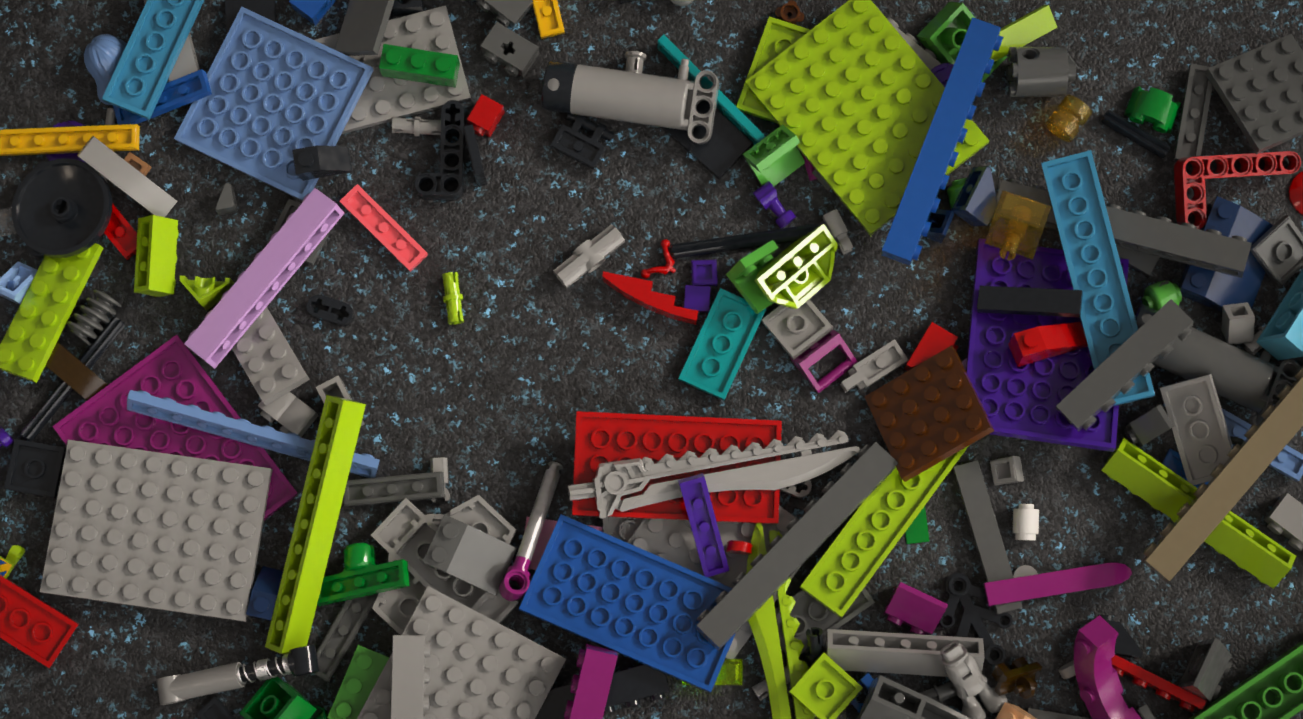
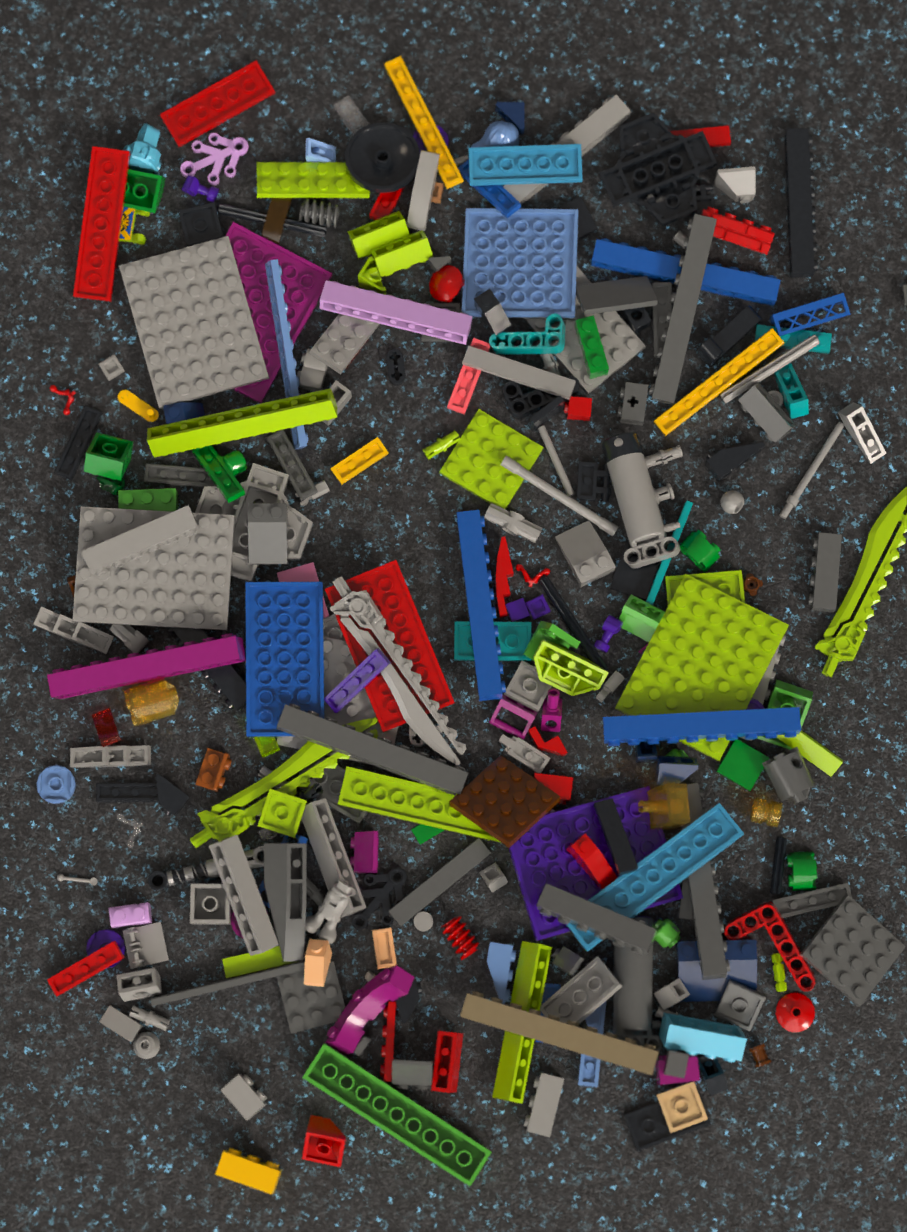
camera: 65 degrees right, 0 degrees up
(82, 30) = (513, 113): none -> dark blue slope
(163, 659) = (111, 367): none -> light grey tile
(193, 239) = (402, 253): none -> lime brick
(228, 647) = (138, 405): none -> yellow piece
(235, 675) = (120, 418): piece -> none
(256, 203) = (446, 283): none -> red dish
(371, 135) = (528, 338): none -> teal beam
(409, 165) = (518, 372): none -> light grey tile
(426, 405) = (359, 461): none -> yellow plate
(499, 248) = (478, 458): none -> lime plate
(519, 570) = (301, 569): flat silver piece -> none
(526, 220) = (516, 468): none -> light grey piece
(535, 172) = (556, 461): none -> light grey bar
(589, 43) = (663, 456): none -> light grey pin
(664, 187) = (585, 553): none -> light grey slope
(673, 338) = (479, 605): none -> blue brick
(721, 54) = (700, 550): none -> green cylinder
(739, 547) = (354, 713): red tile -> none
(839, 311) = (552, 710): none -> magenta bracket
(880, 328) = (552, 746): none -> red slope
(1001, 120) = (742, 765): none -> green tile
(1018, 679) = (348, 945): dark brown hips -> none
(1025, 522) = (462, 904): white brick -> none
(1037, 639) = (384, 948): none -> light nougat tile
(1056, 583) = (428, 943): magenta piece -> none
(1064, 540) = (460, 937): none -> red piece
(1117, 510) = (499, 962): none -> medium blue slope
(1209, 622) = (447, 1062): none -> red brick
(1260, 190) = (779, 972): none -> lime axle

